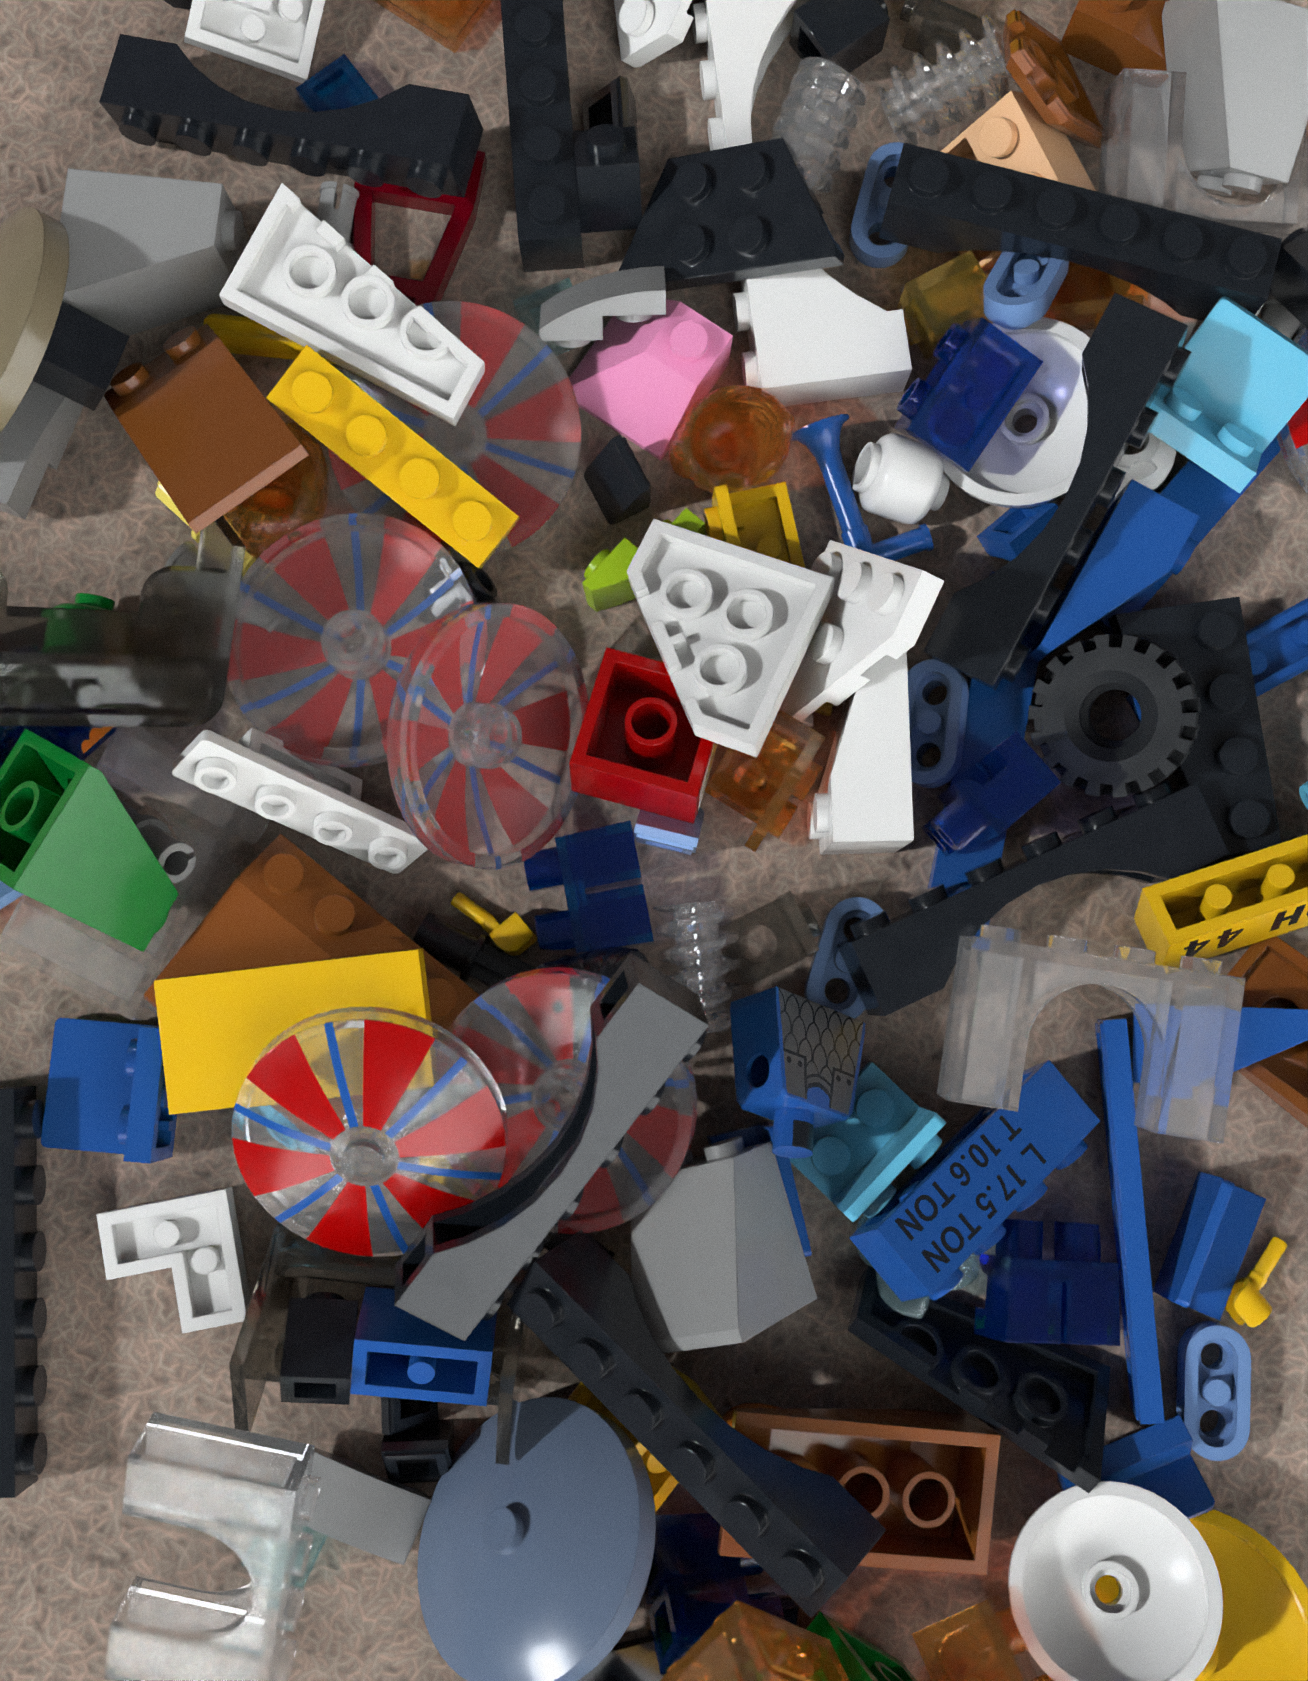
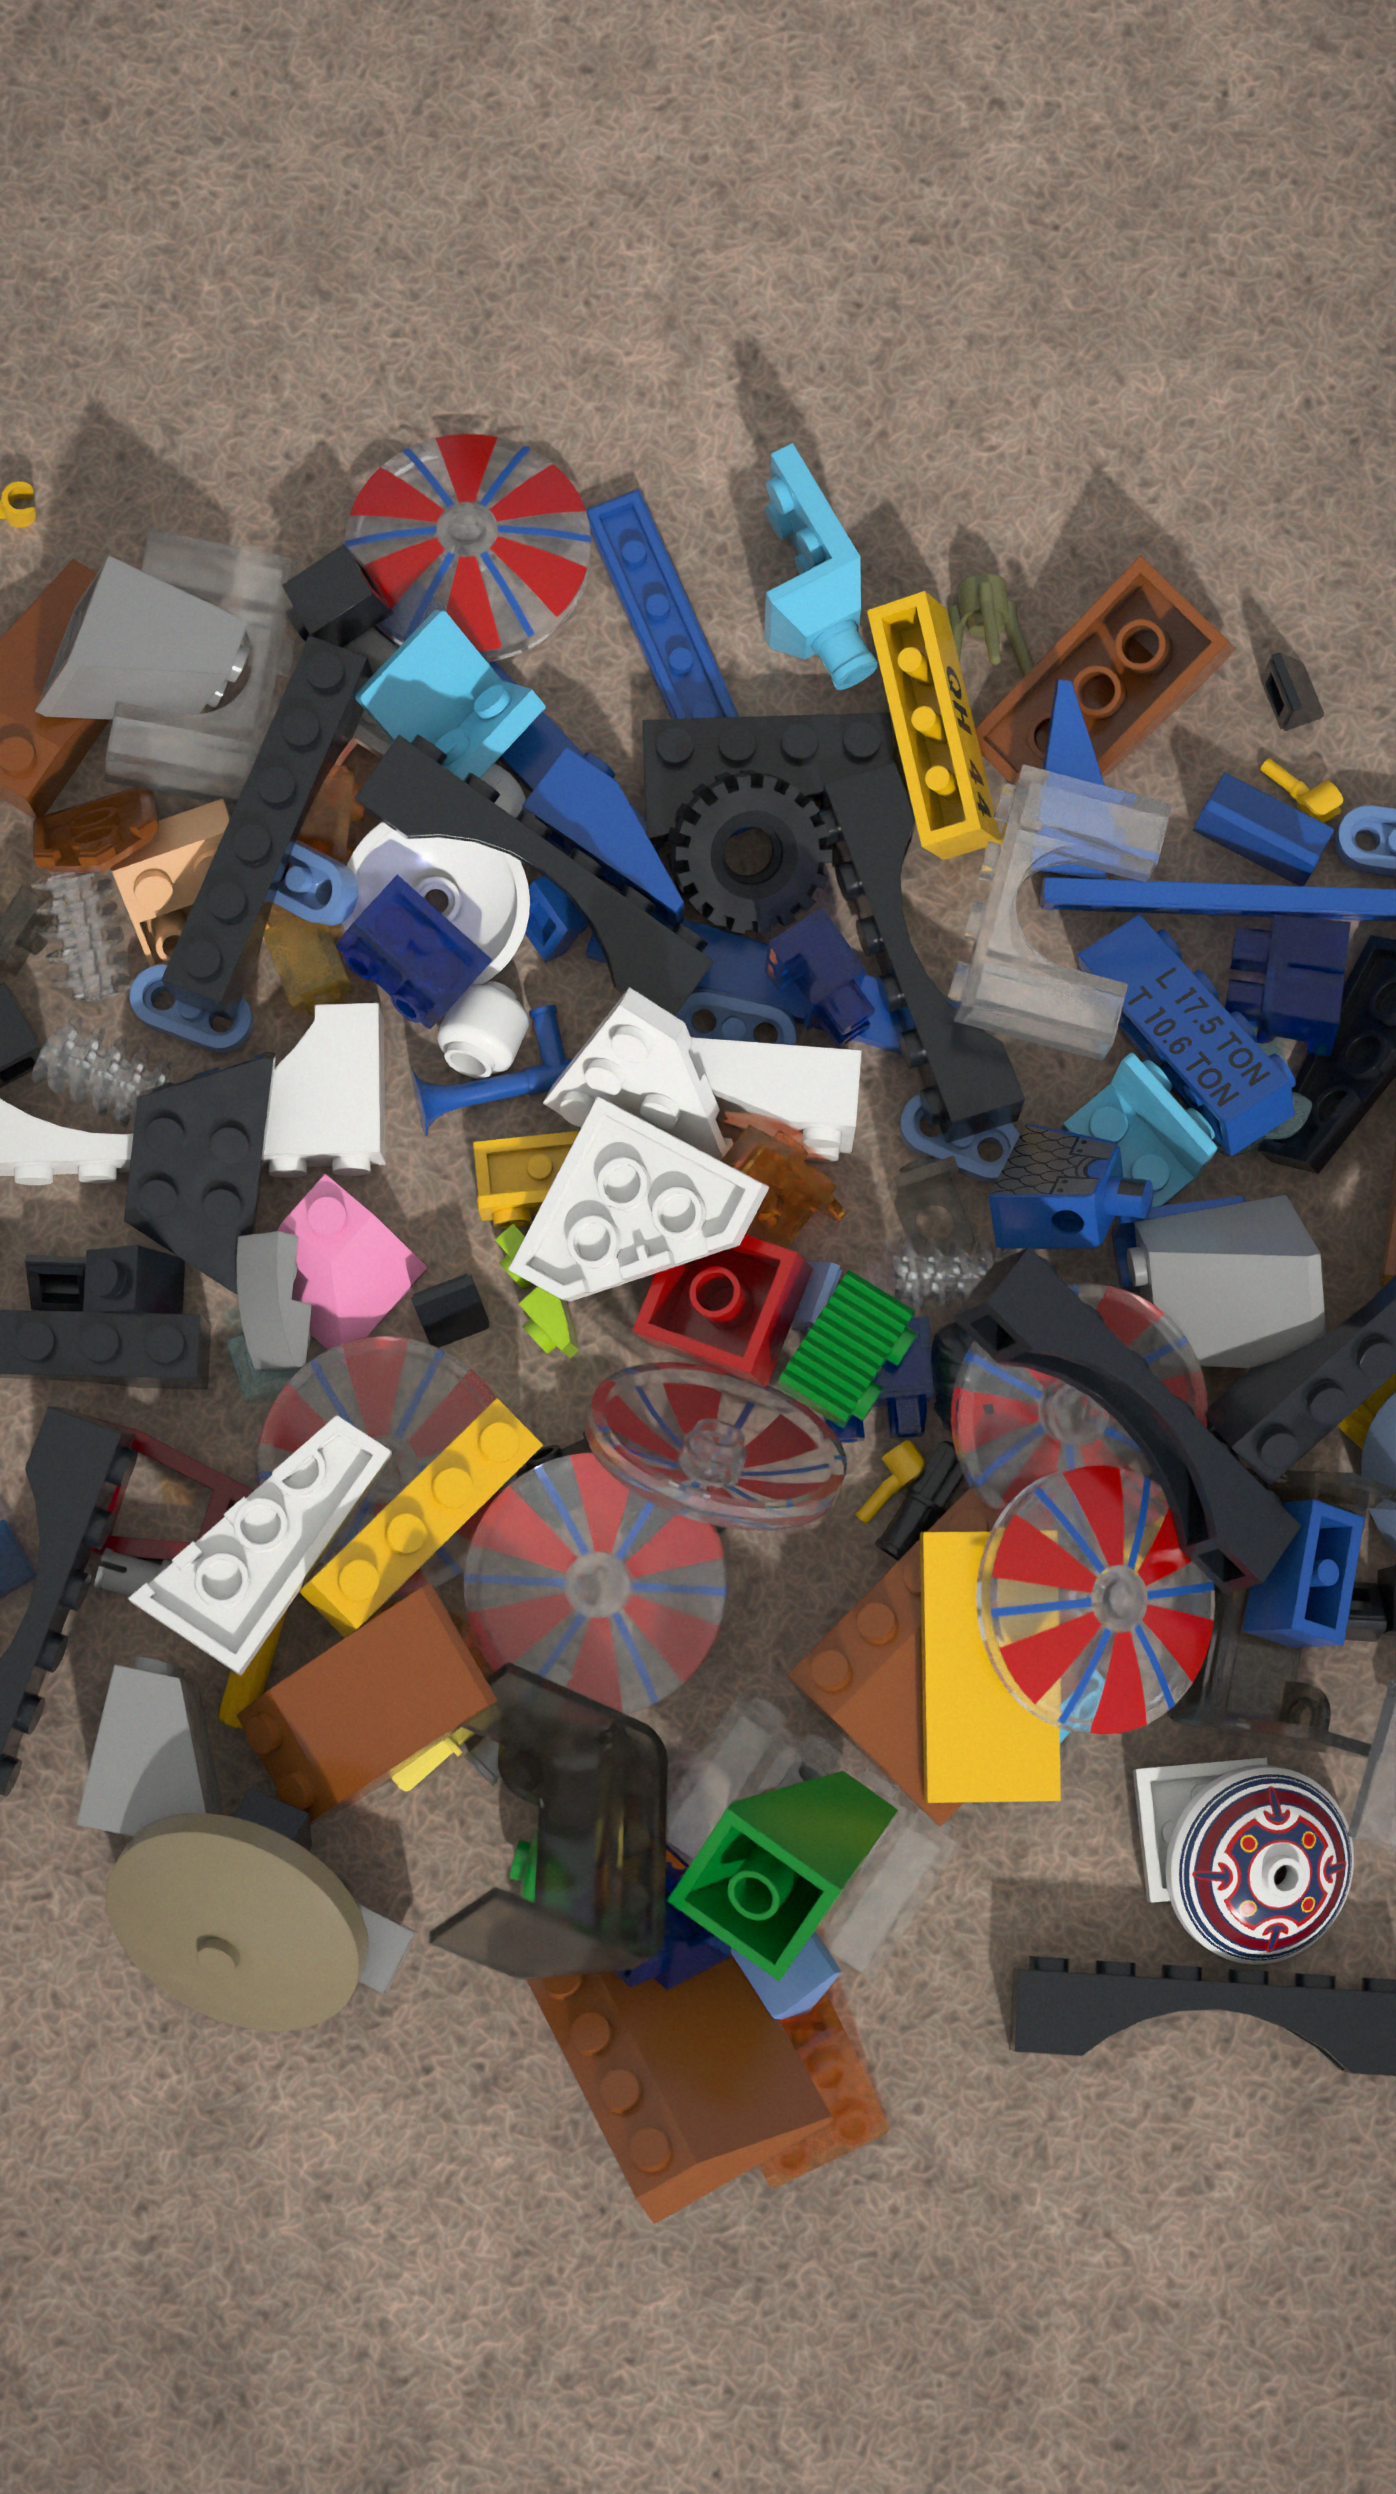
camera: 80 degrees left, 5 degrees down
(108, 1091) = (1024, 1880): blue bracket -> none
(141, 1321) = (1227, 1859): none -> dish
(299, 795) = (755, 1645): white bracket -> none
(318, 1349) = (1300, 1677): black brick -> none
(604, 859) = (847, 1350): none -> green brick
(732, 439) = (425, 1189): clear orange hair -> none

